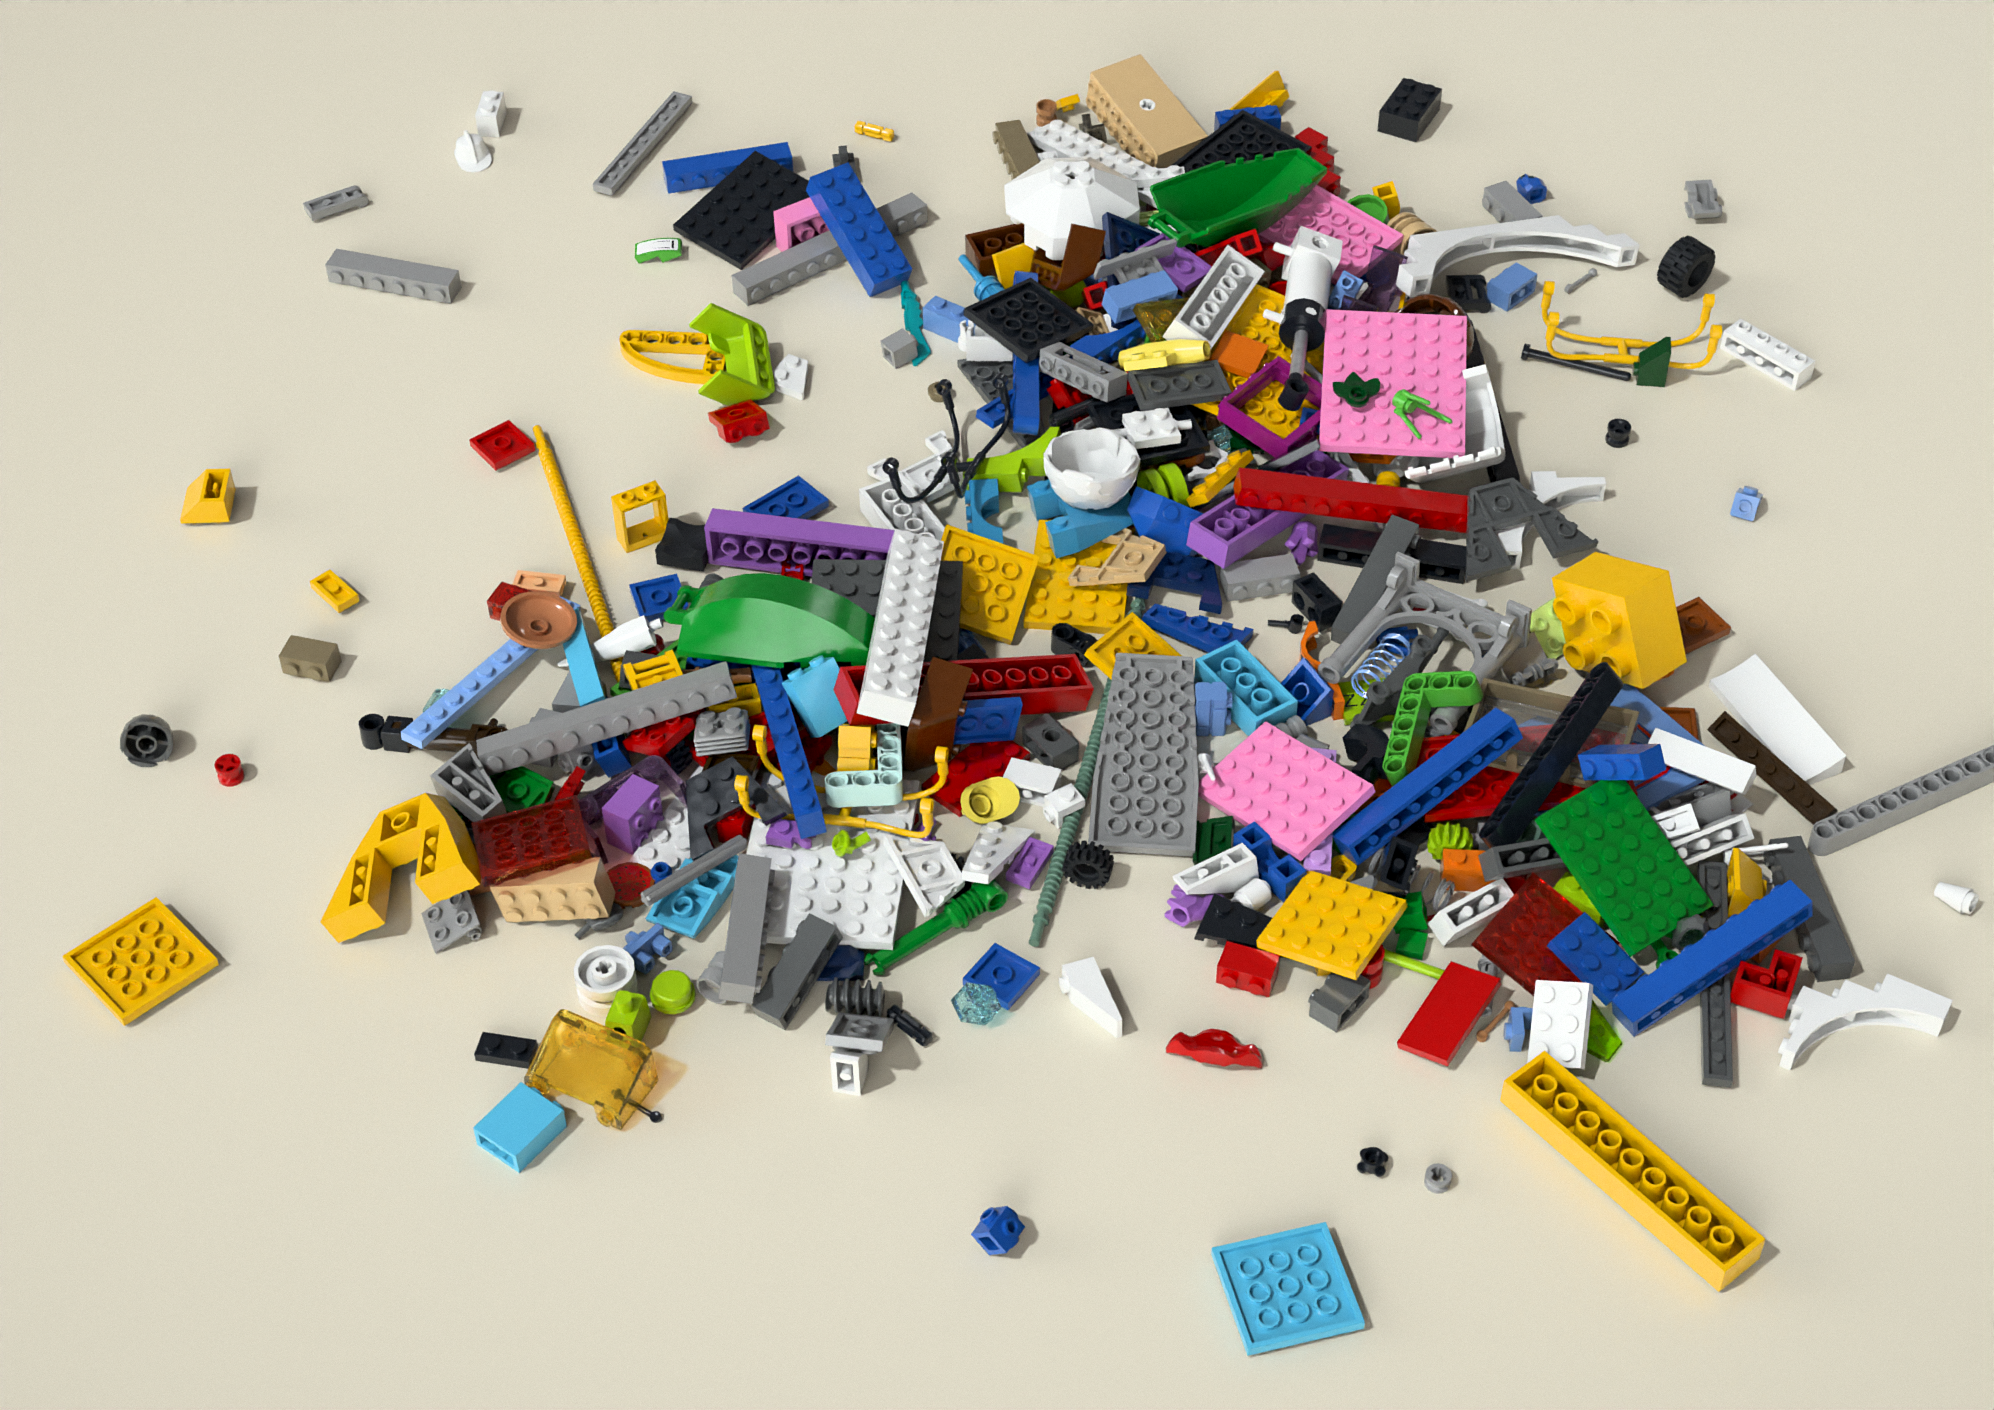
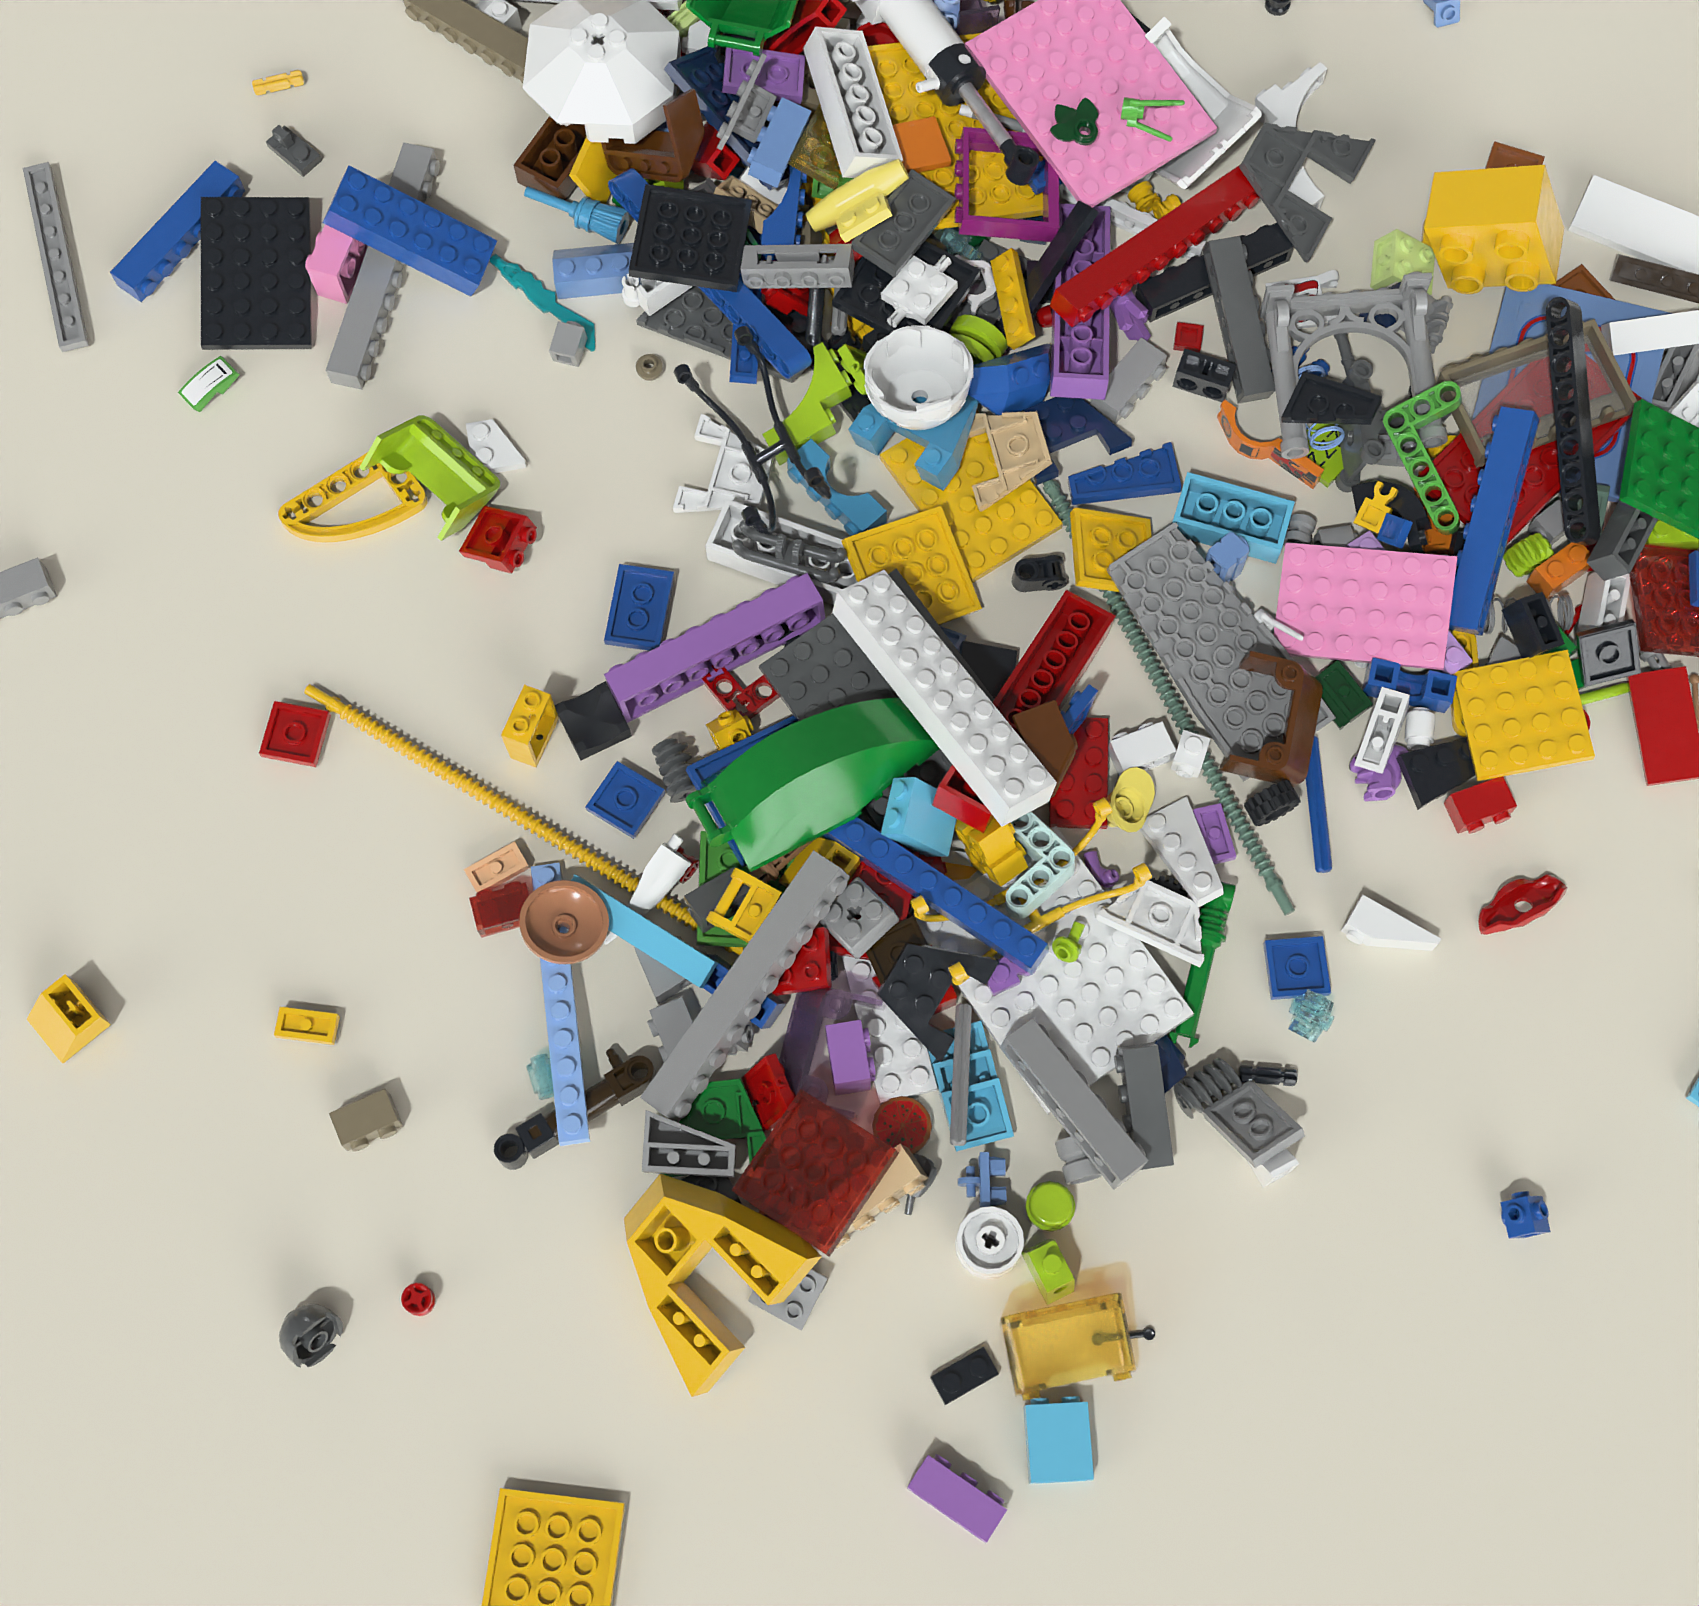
camera: 40 degrees left, 25 degrees up
(420, 1109) = (958, 1497): none -> medium lavender brick
(660, 871) = (929, 1091): blue pin -> none
(904, 515) = (789, 554): none -> dark grey piece
(1050, 742) = (1129, 708): dark grey brick -> none
(1125, 895) = (1317, 812): none -> blue axle
(1149, 829) = (1292, 756): none -> reddish brown windscreen
(1294, 625) = (1193, 412): black hand -> none
(1310, 691) = (1281, 478): blue slope -> none
(1337, 581) = (1188, 337): none -> red tile
(1338, 1000) = (1573, 785): dark grey brick -> none
(1350, 755) = (1394, 530): none -> blue plate
(1351, 739) = (1374, 511): none -> yellow plate
(1377, 647) = (1329, 402): none -> black wing
(1443, 929) = (1608, 652): none -> tile
(1622, 762) = (1651, 393): blue brick -> none

